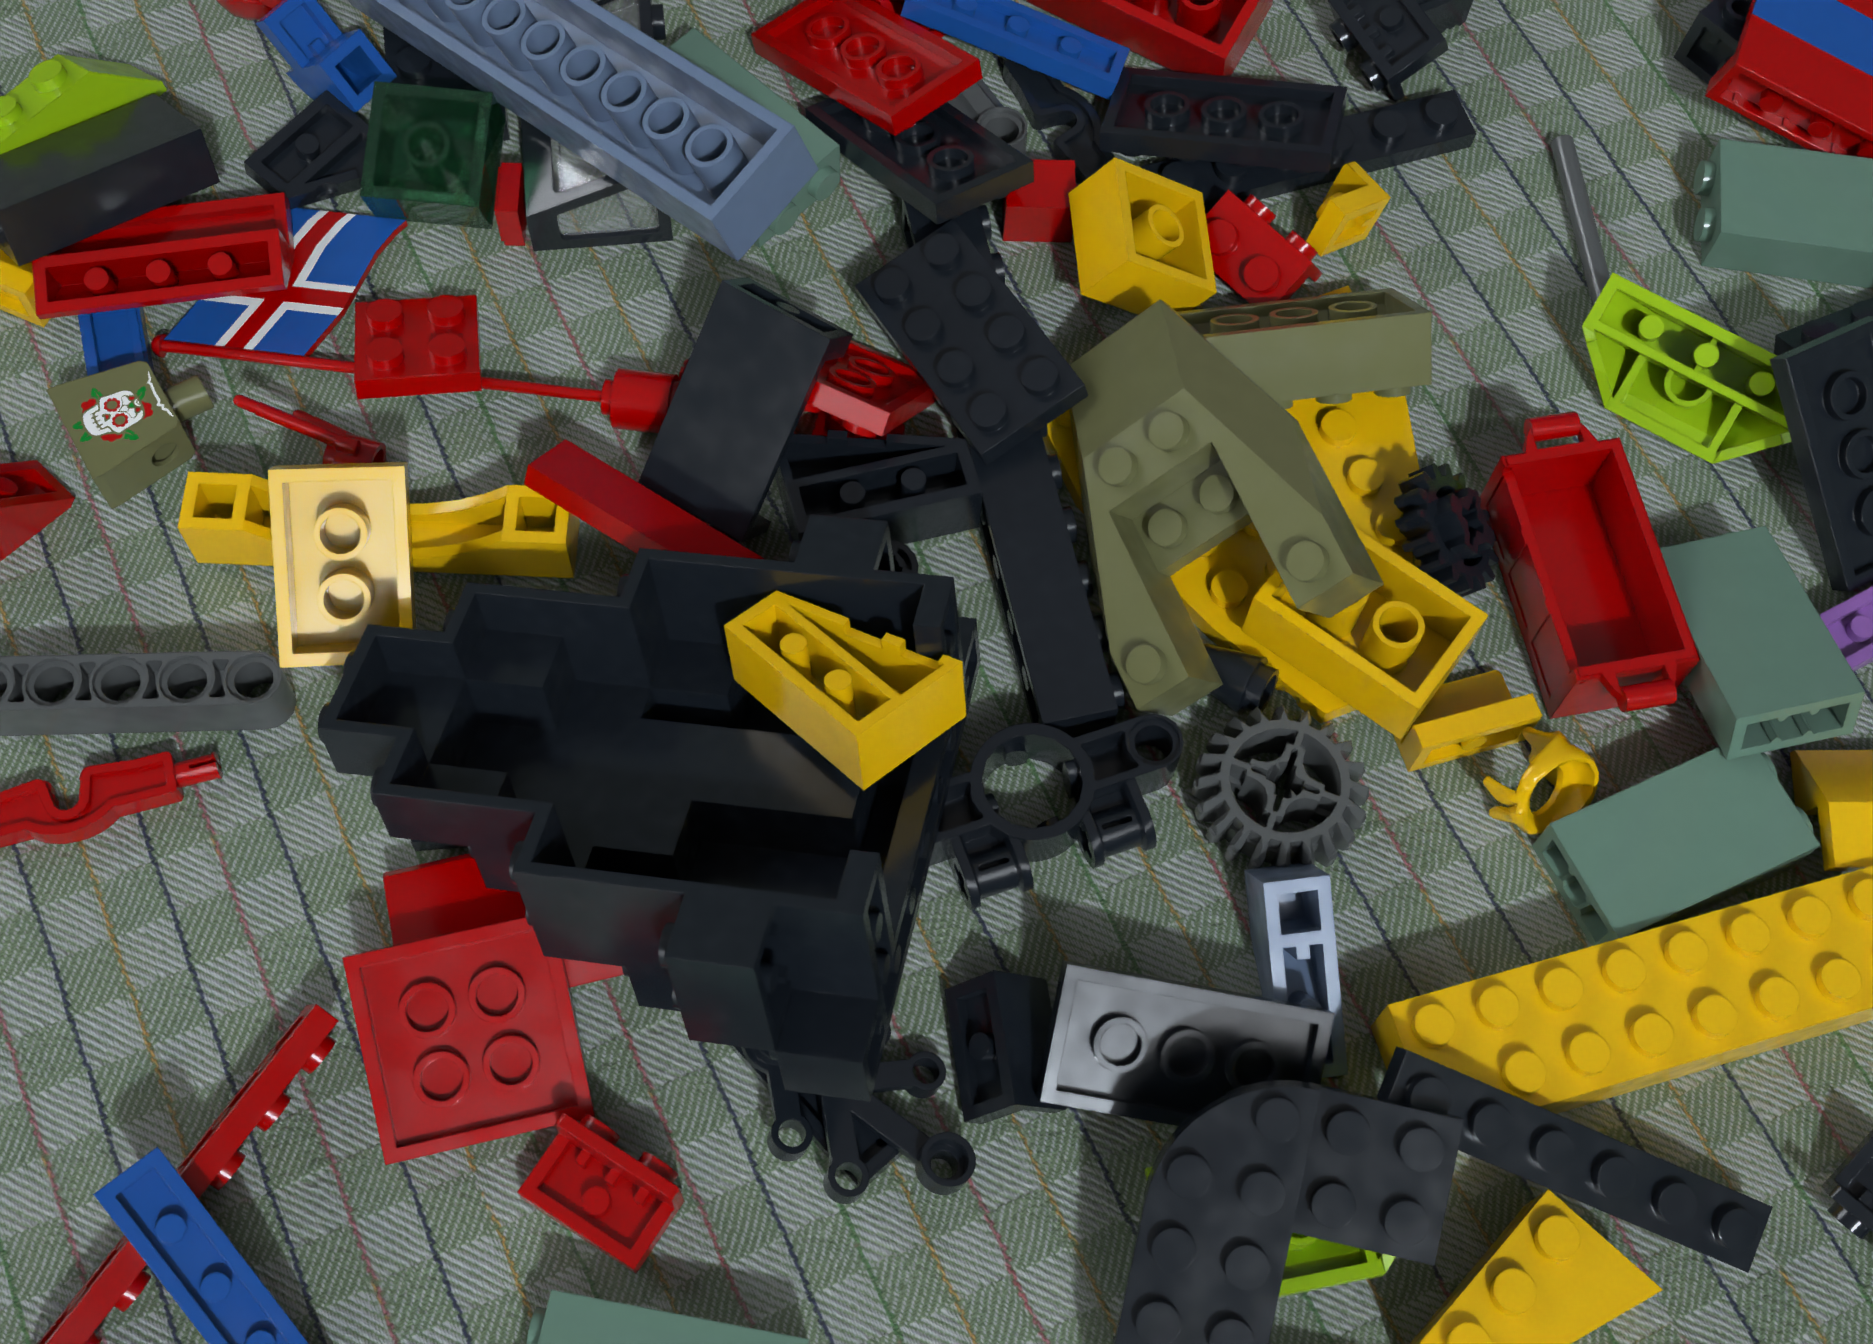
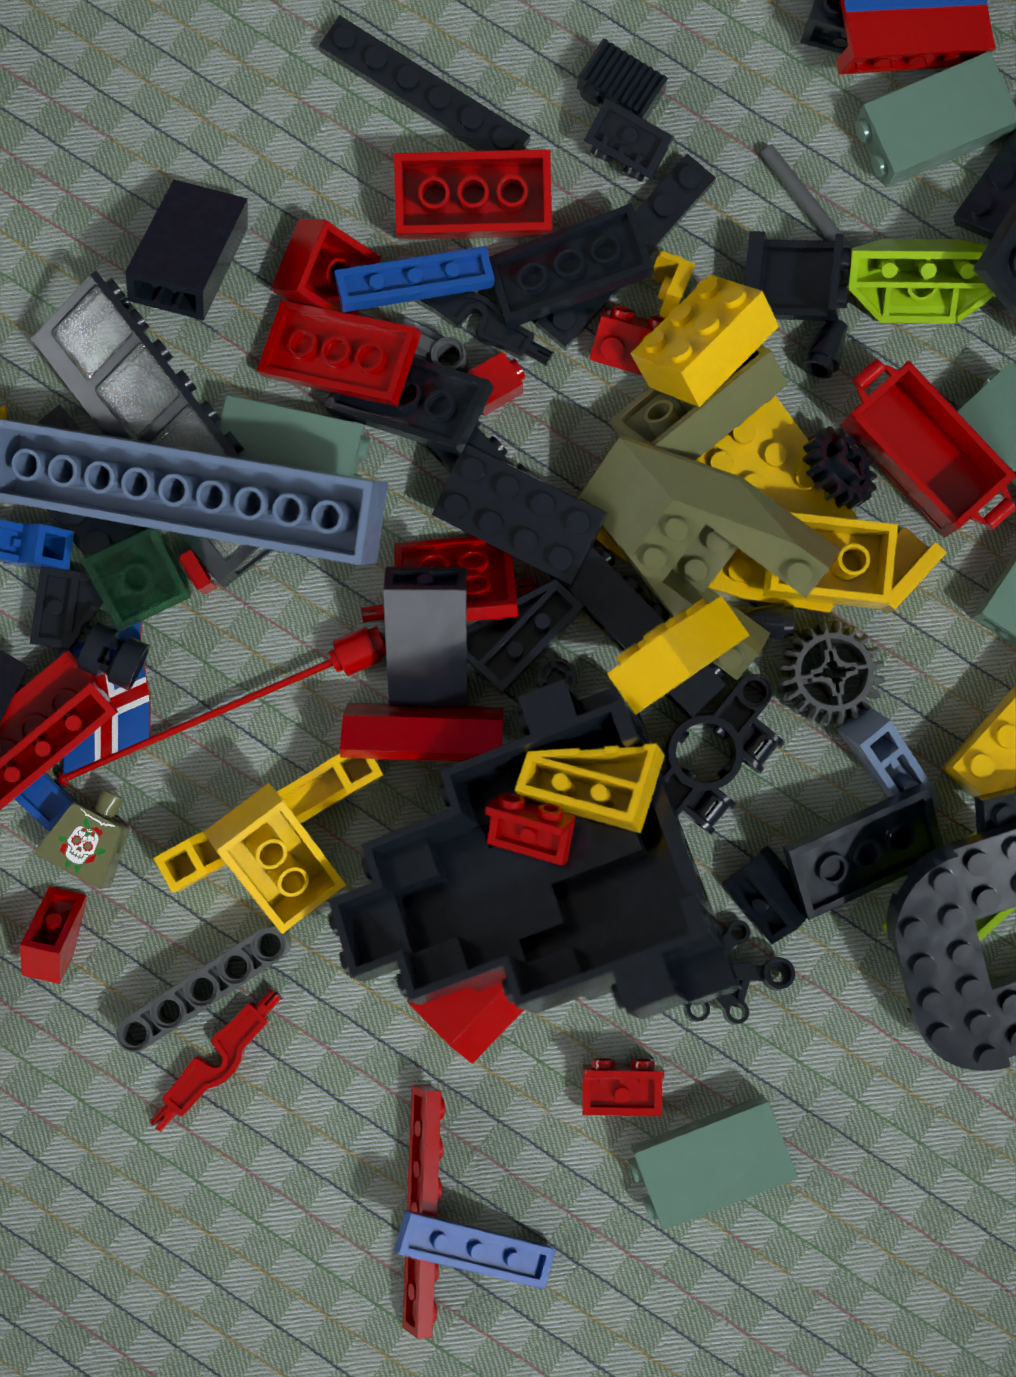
camera: 25 degrees left, 20 degrees up
(331, 224) = (127, 659): none -> black wheel
(341, 445) = (221, 783): red plant -> none
(417, 346) = (209, 695): red plate -> none
(466, 1039) = (508, 1061): red plate -> none
(712, 704) = (530, 828): none -> red bracket
(1068, 582) = (676, 652): none -> yellow brick
(1141, 240) = (574, 385): yellow brick -> none
(1349, 264) = (705, 339): none -> yellow brick
(1509, 394) = (826, 350): none -> black cone
(1512, 287) = (799, 276): none -> black panel
(1564, 766) = (973, 581): yellow piece -> none

